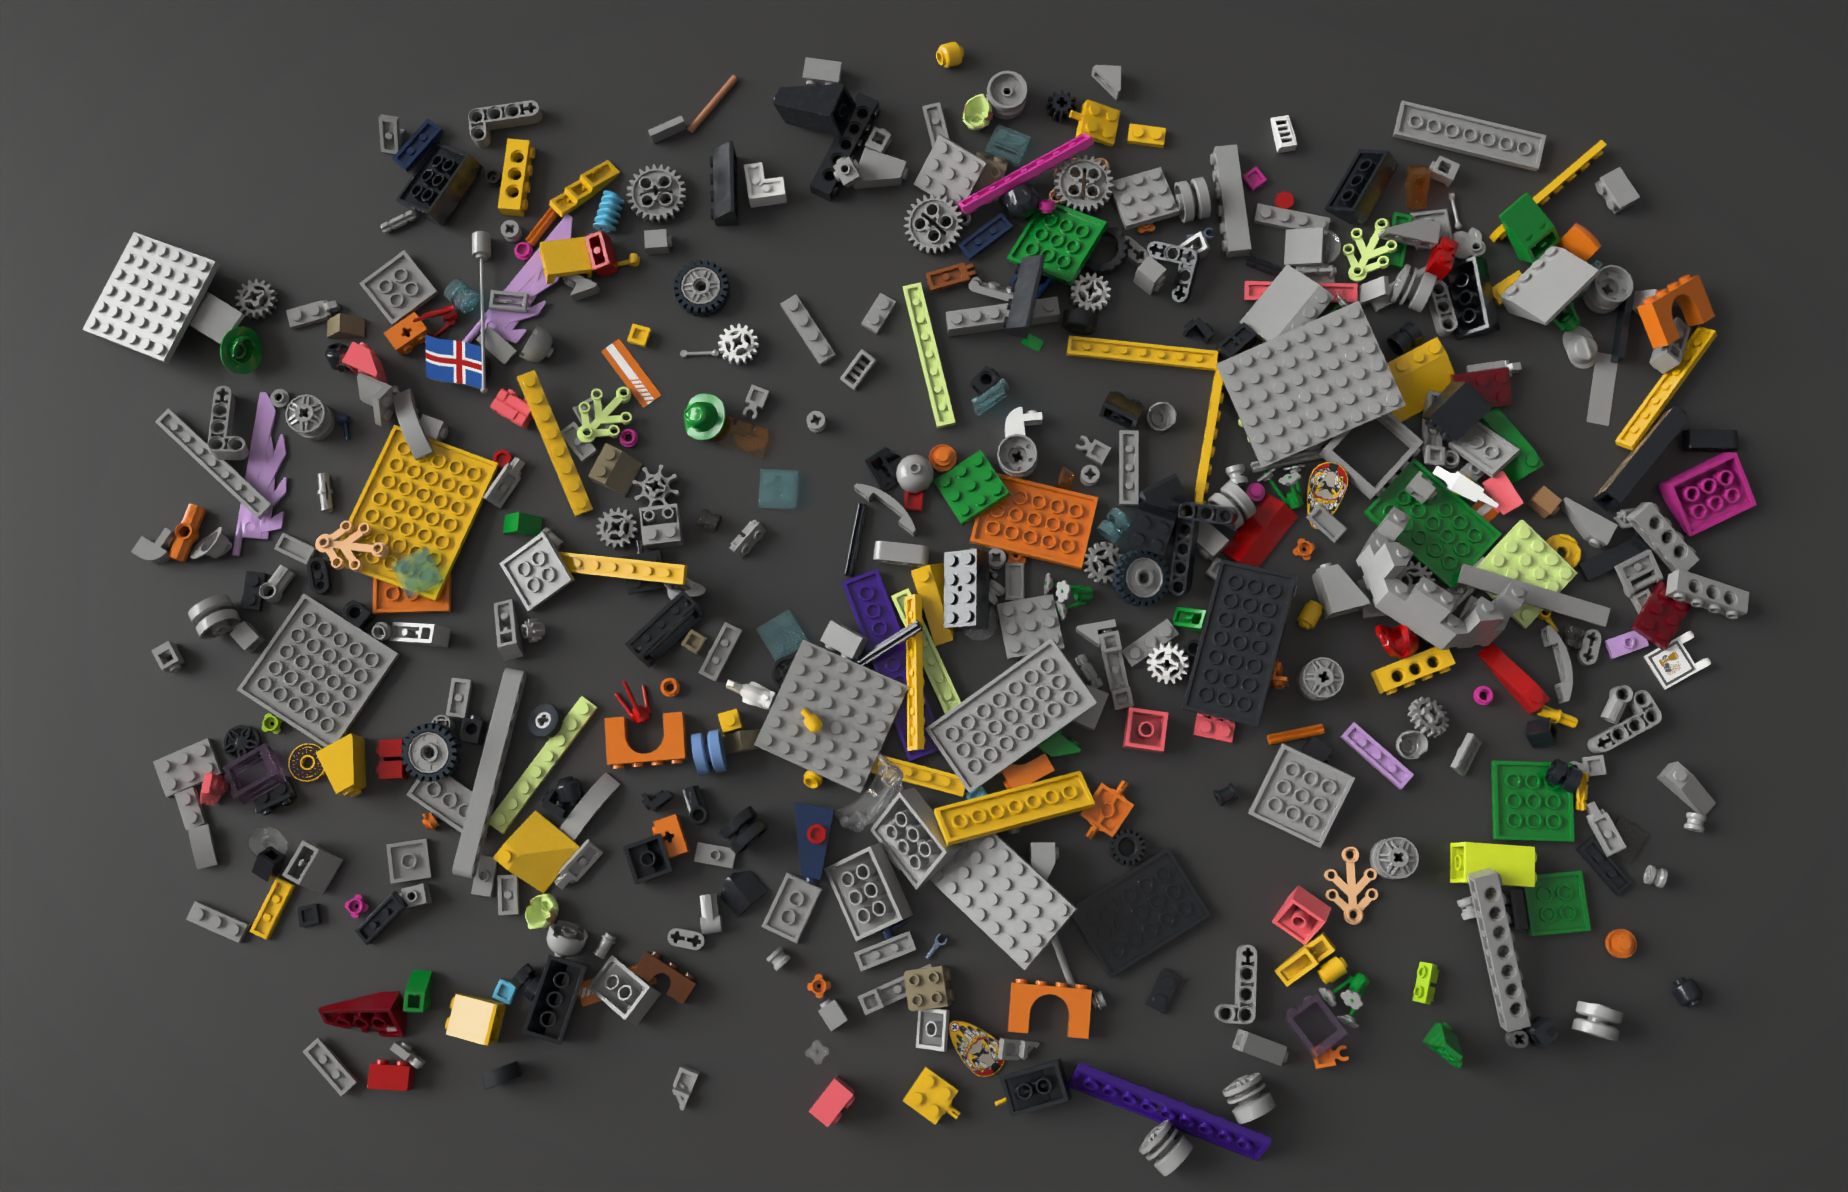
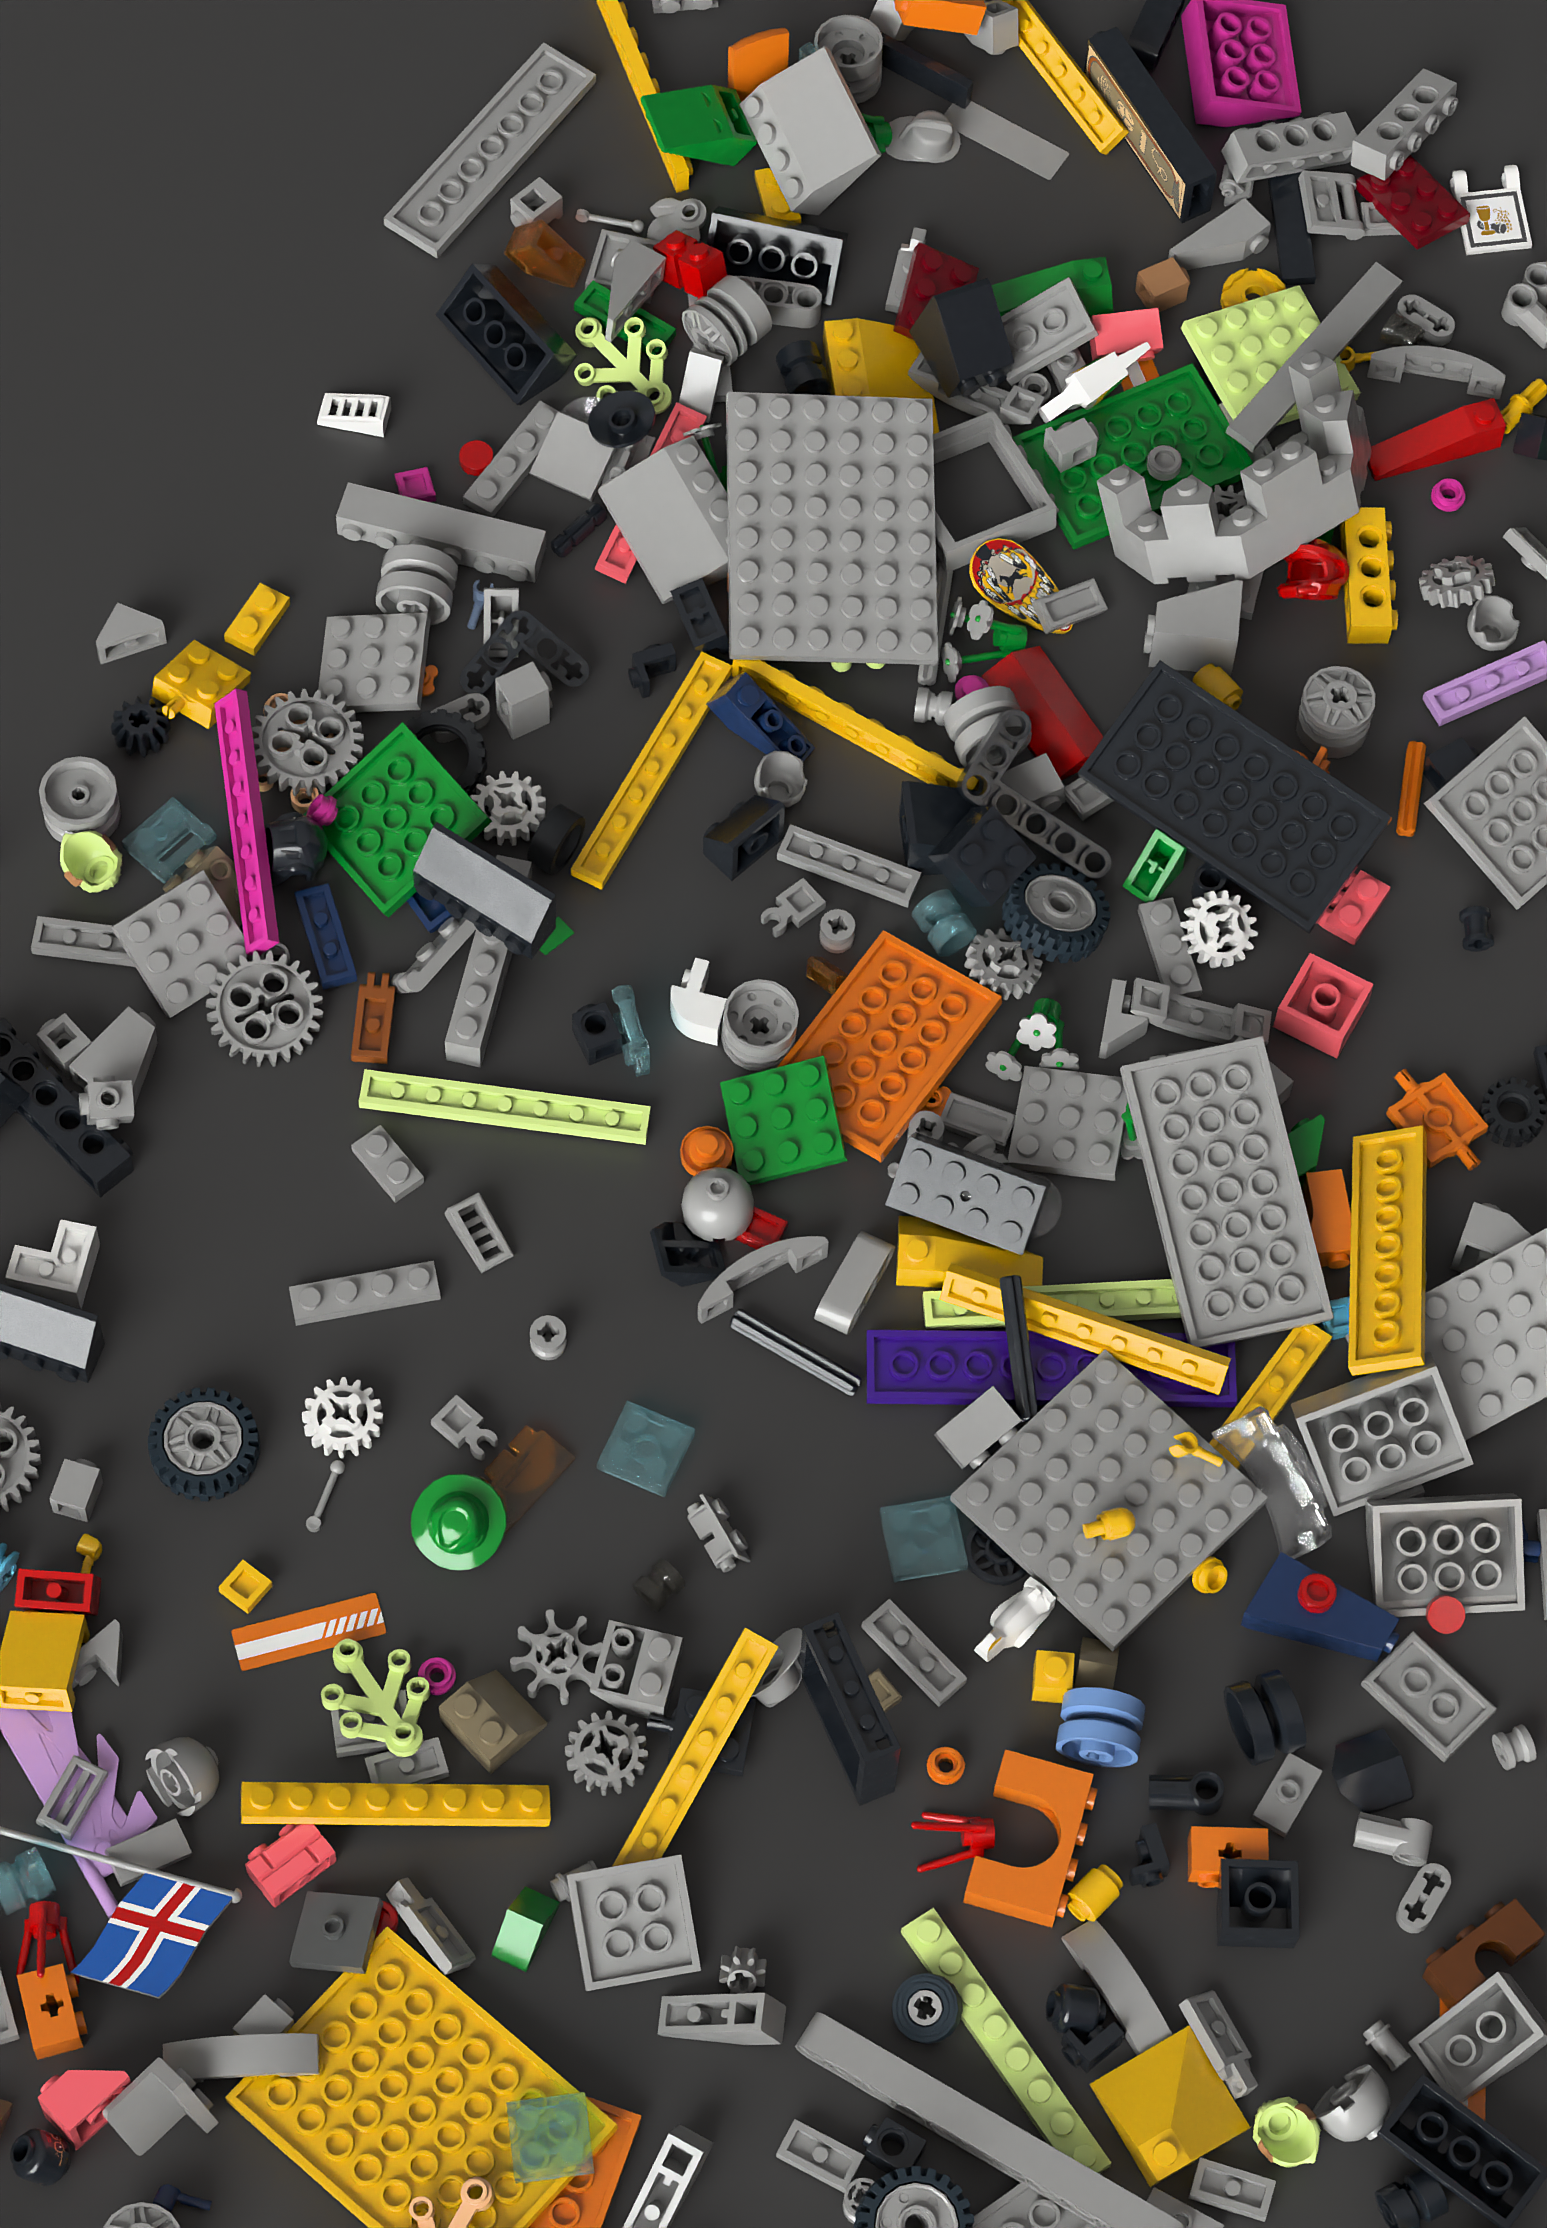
camera: 75 degrees left, 15 degrees down
(487, 441) = (336, 1932): none -> dark grey plate
(629, 779) = (1094, 1893): none -> yellow brick
(836, 901) = (1445, 1614): none -> tile
(867, 746) = (1191, 1446): none -> yellow hand
(1190, 394) = (756, 718): none -> dark blue slope
(1304, 544) = (1104, 649): orange plate -> none
(1330, 253) = (621, 419): none -> black dish
(1432, 540) = (1164, 463): none -> light grey tile
(1625, 644) = (1438, 269): lavender plate -> none

